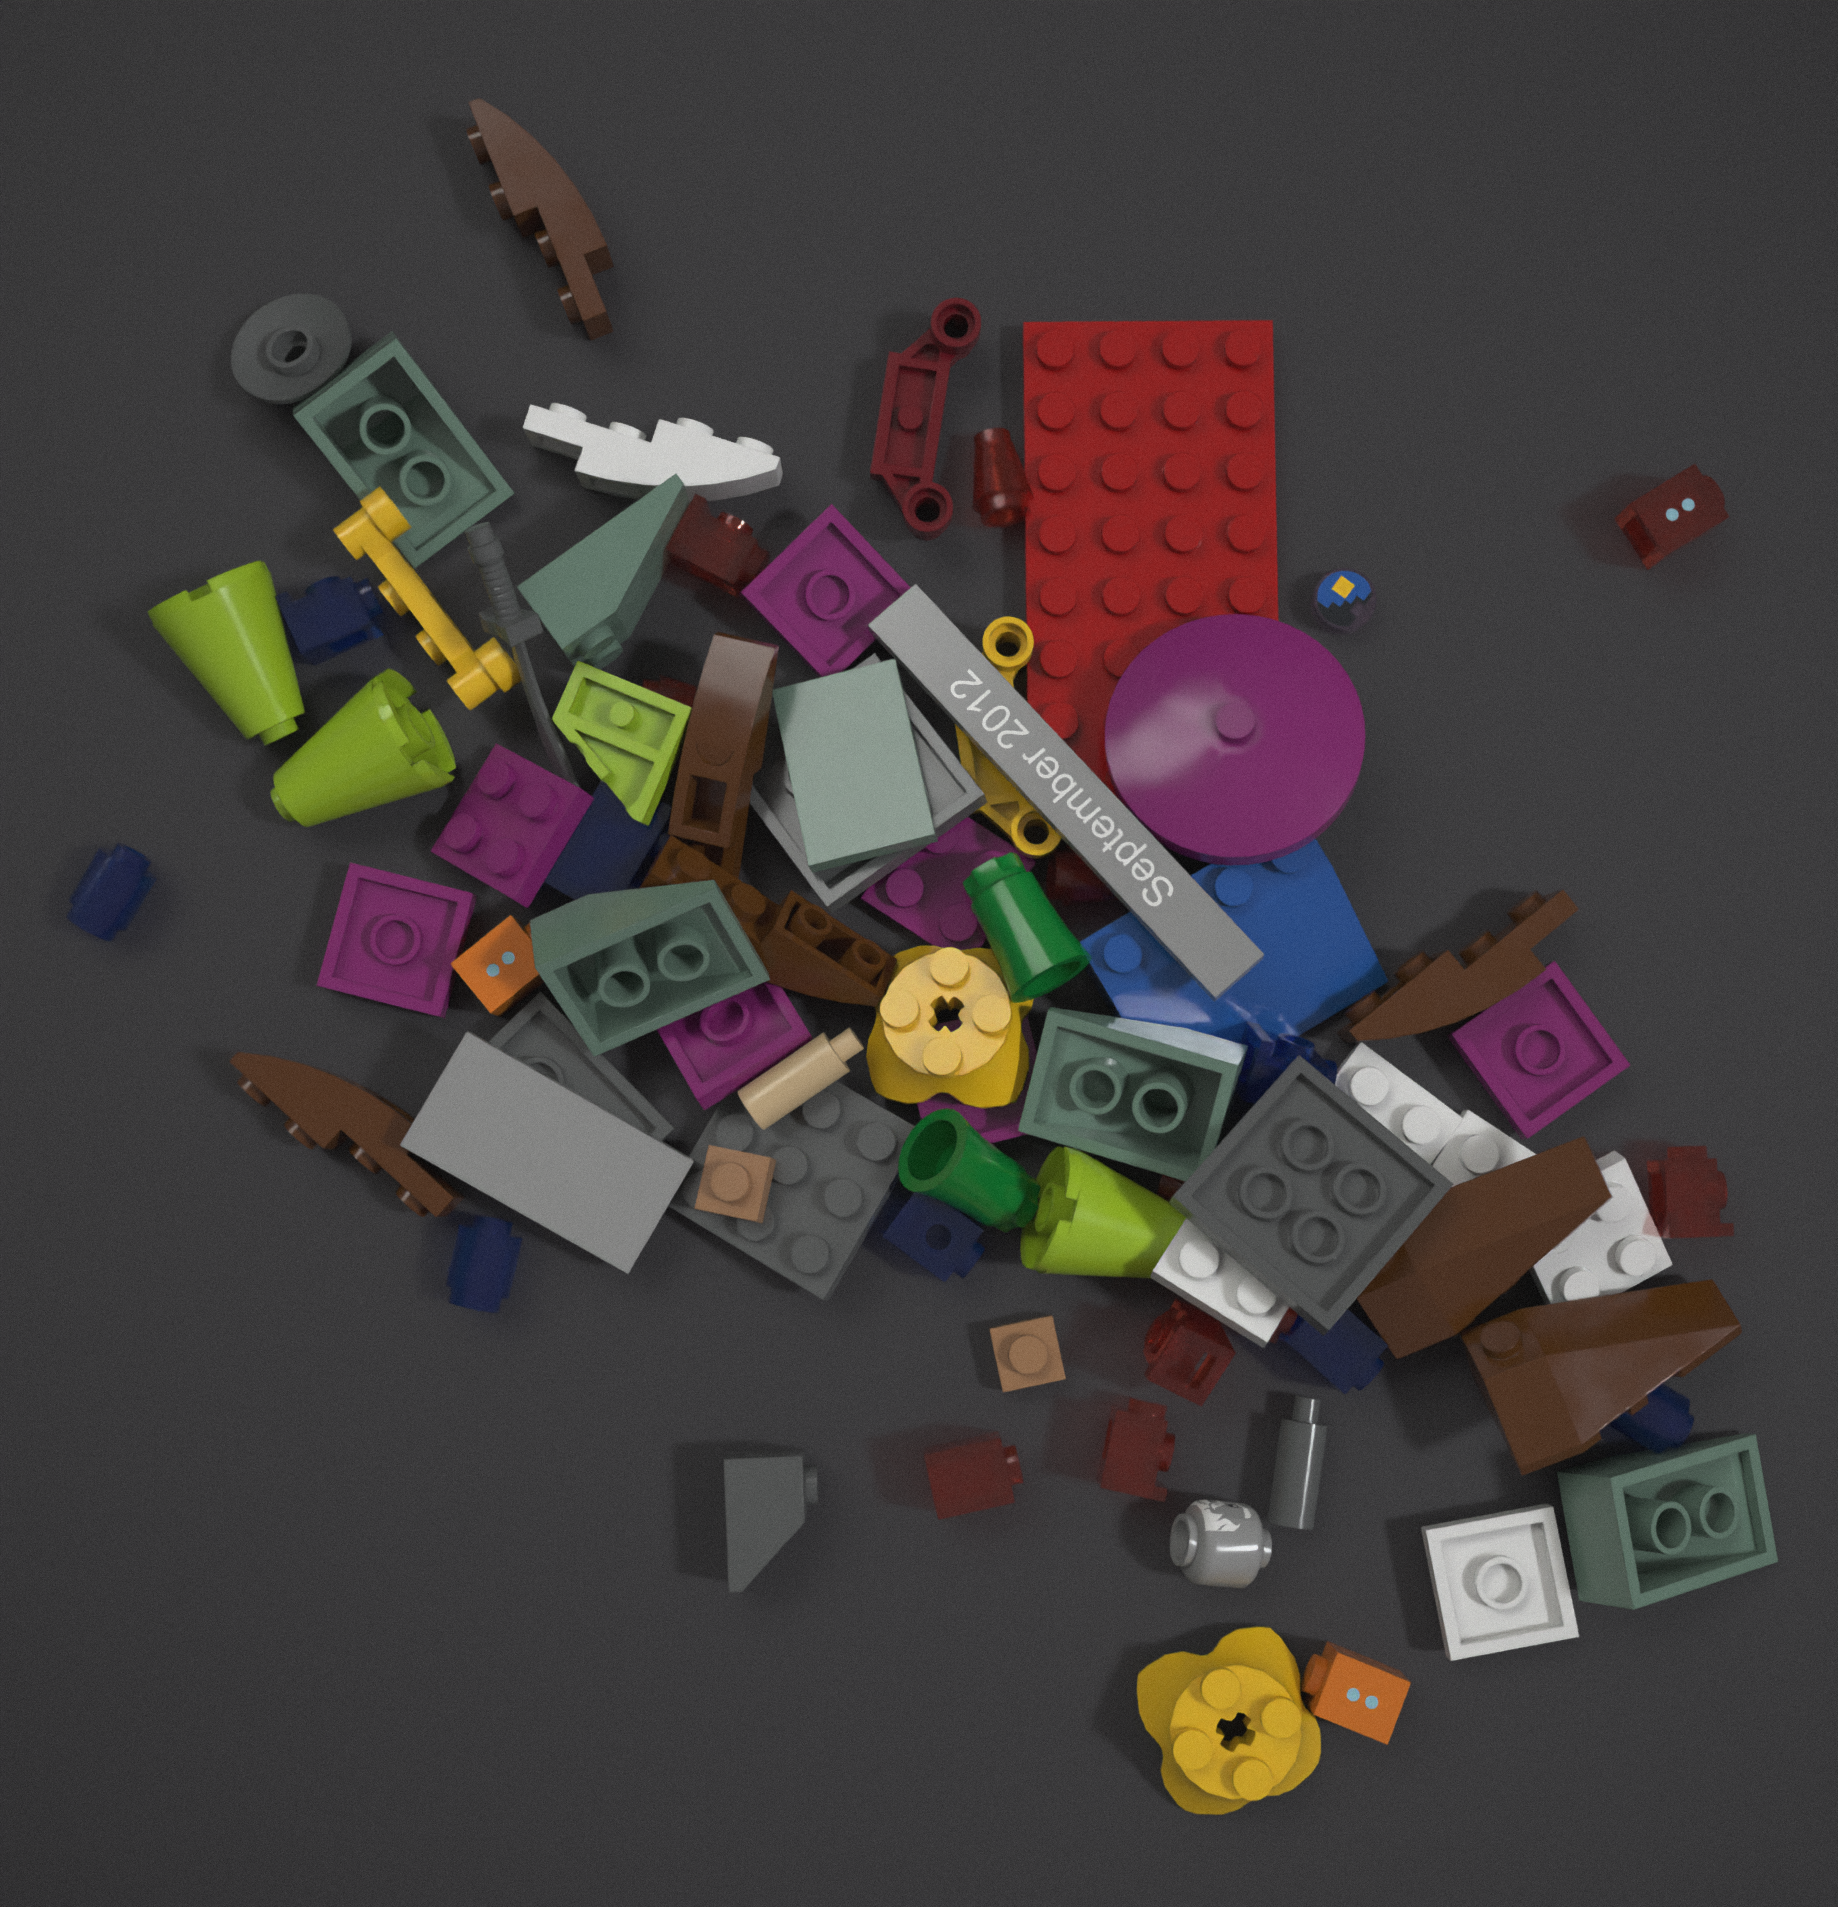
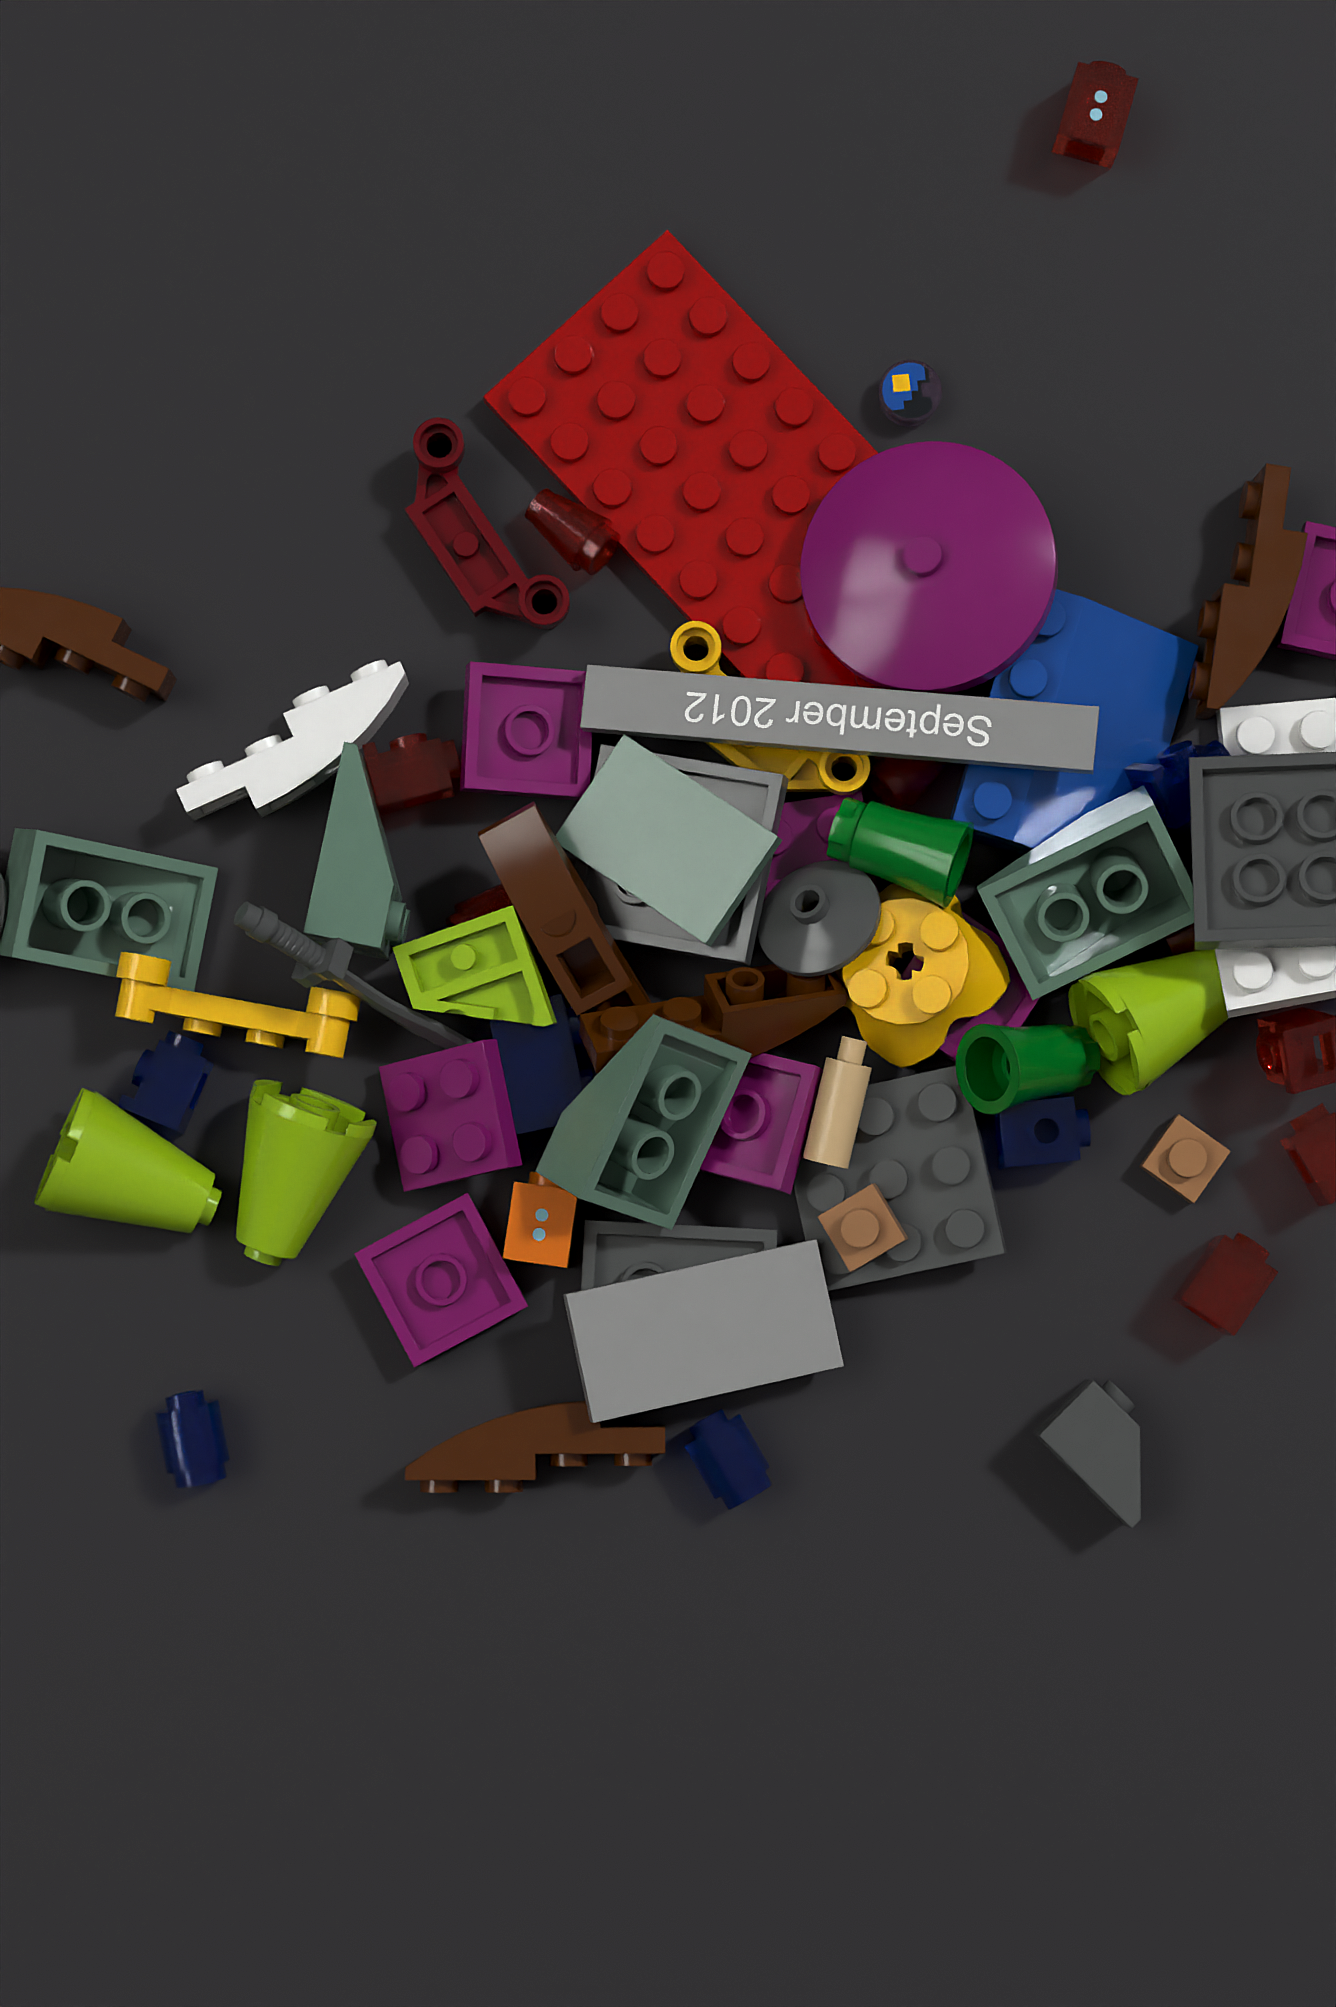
camera: 45 degrees left, 0 degrees up
(912, 925) = (831, 932): none -> dark grey dish

